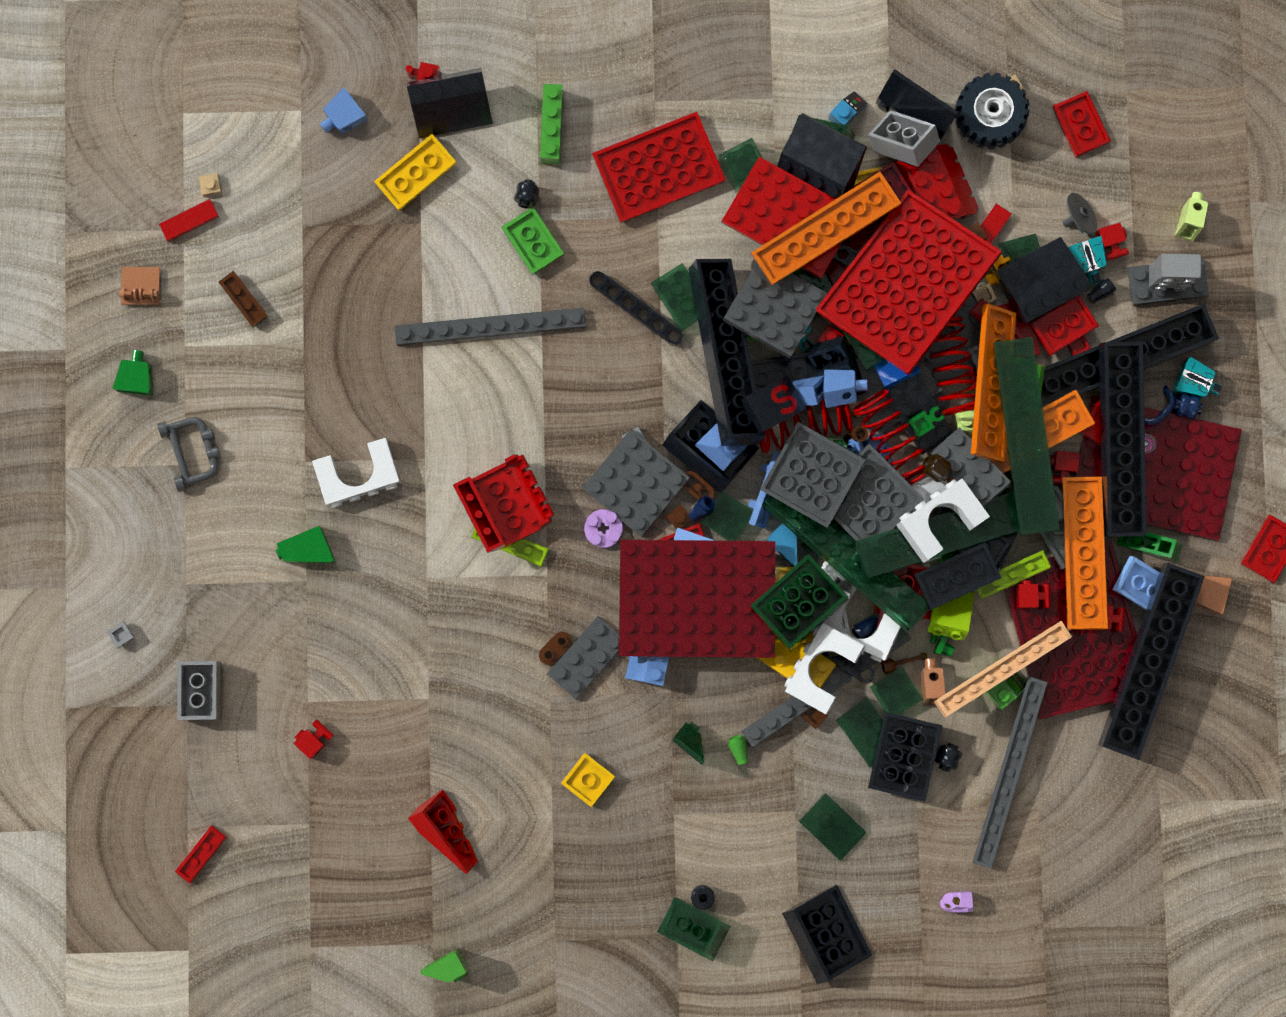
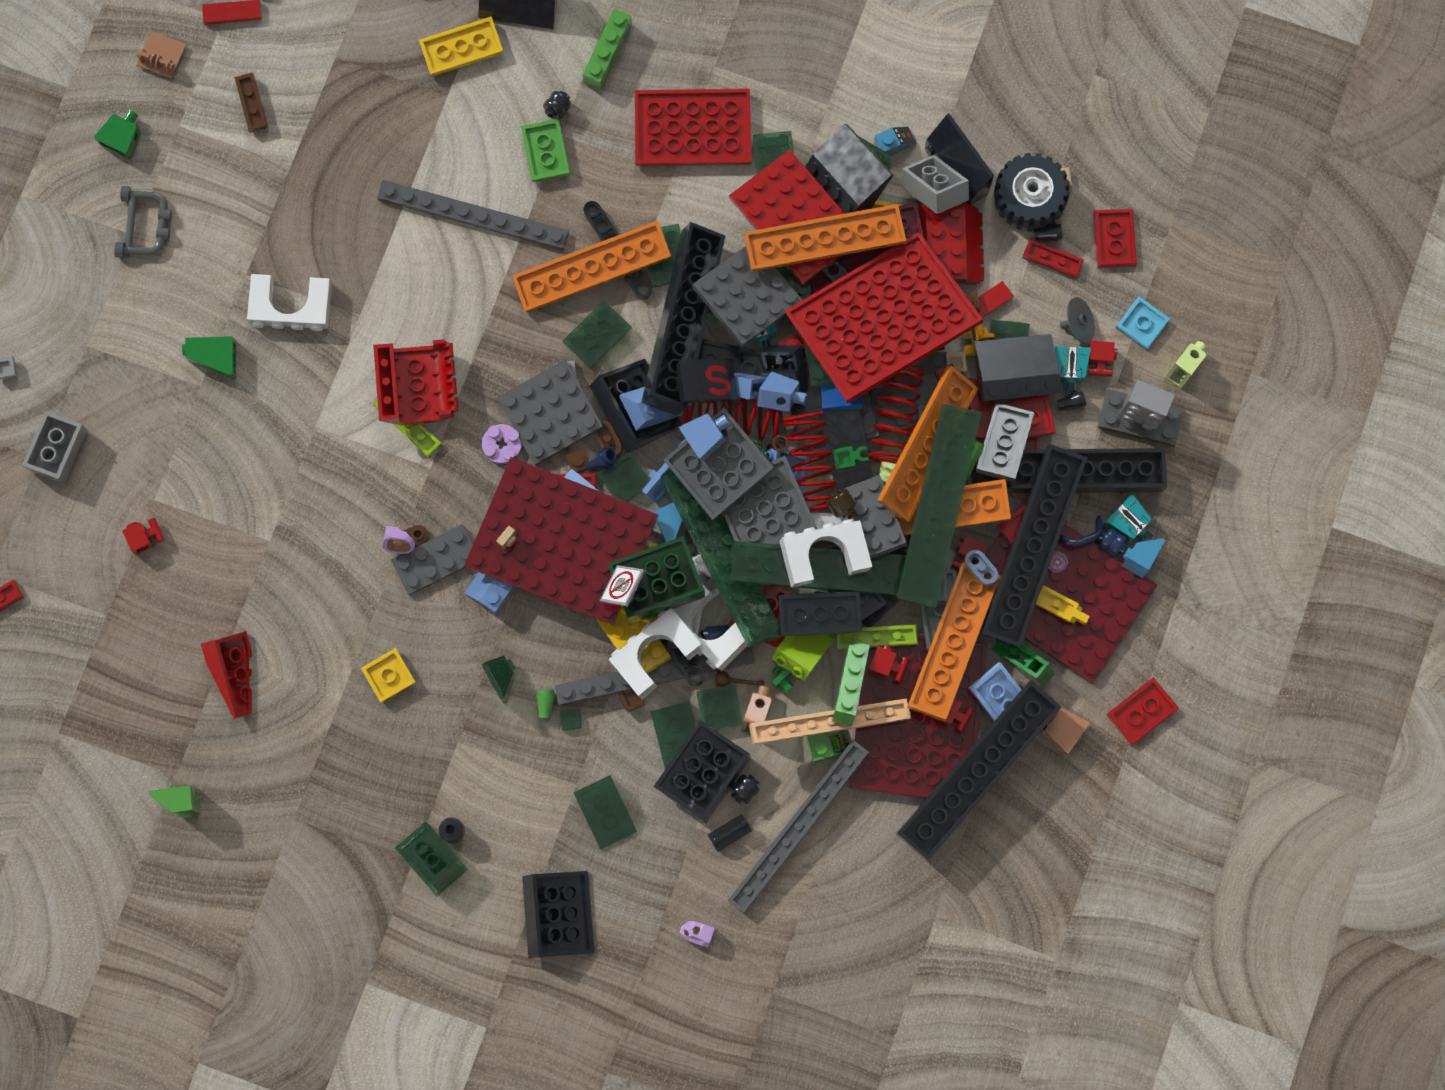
camera: 20 degrees right, 5 degrees down
(547, 656) = (397, 541): none -> lavender rock
(620, 333) = (591, 266): none -> orange plate
(649, 394) = (597, 334): none -> clear green plate
(650, 617) = (507, 538): none -> tan plate
(767, 755) = (571, 719): none -> clear green tile
(775, 622) = (622, 585): none -> piece
(791, 453) = (705, 434): none -> medium blue torso
(949, 801) = (729, 832): none -> black hinge
(1008, 627) = (850, 683): none -> bright green brick
(1021, 142) = (1049, 233): none -> black cone
(1032, 164) = (1053, 258): none -> red tile
(1060, 353) = (1005, 442): none -> plate
(1084, 475) = (981, 569): none -> sand blue plate
(1136, 193) = (1142, 323): none -> medium azure tile
(1167, 483) = (1061, 606): none -> yellow hinge
(1220, 409) = (1142, 556): none -> dark azure slope

